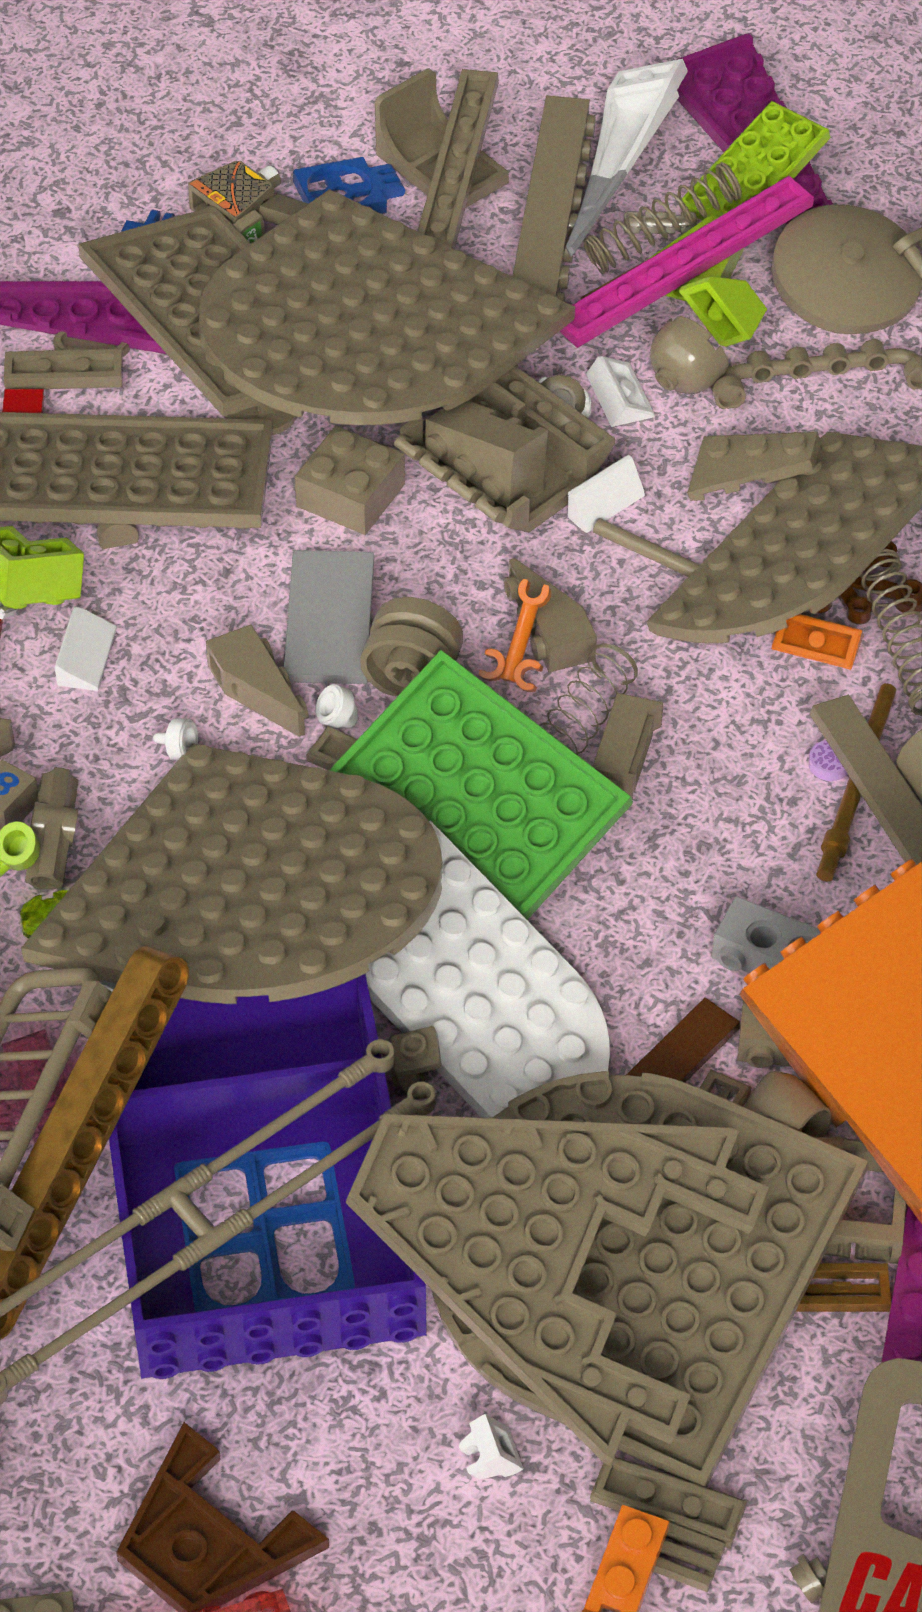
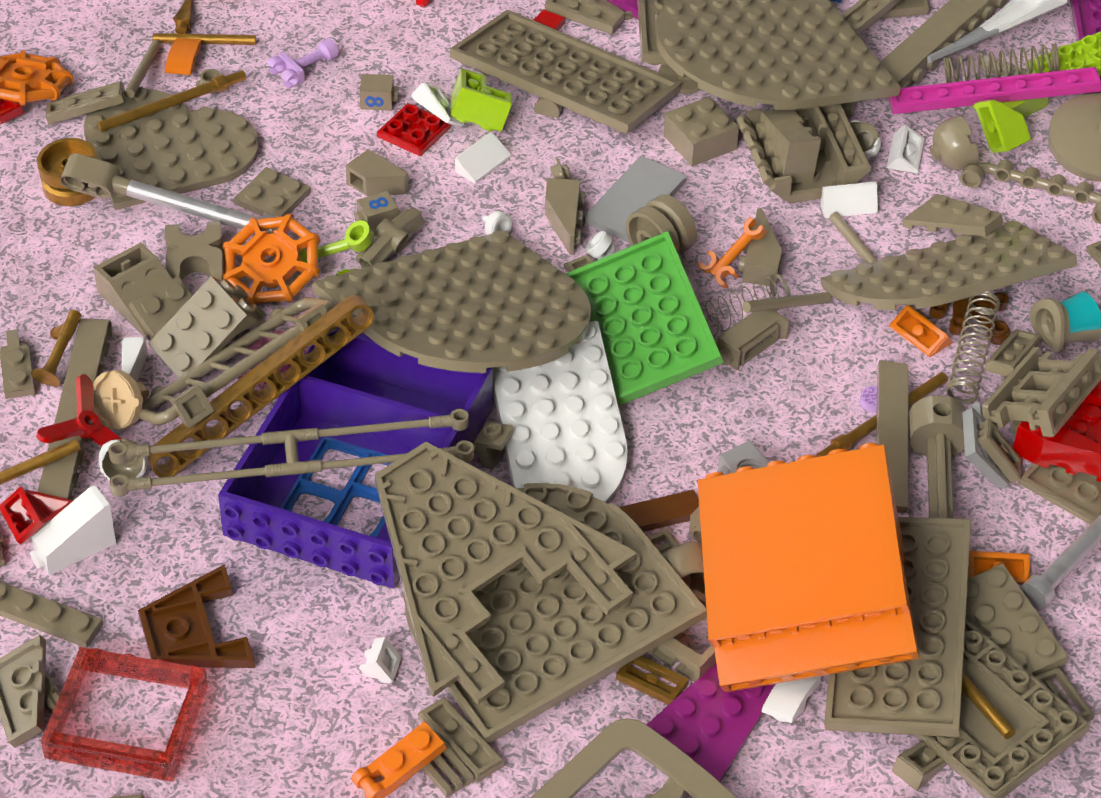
camera: 30 degrees right, 5 degrees down
(208, 623) = (560, 171): none -> dark tan plate
(640, 678) = (786, 302): none -> dark tan bar

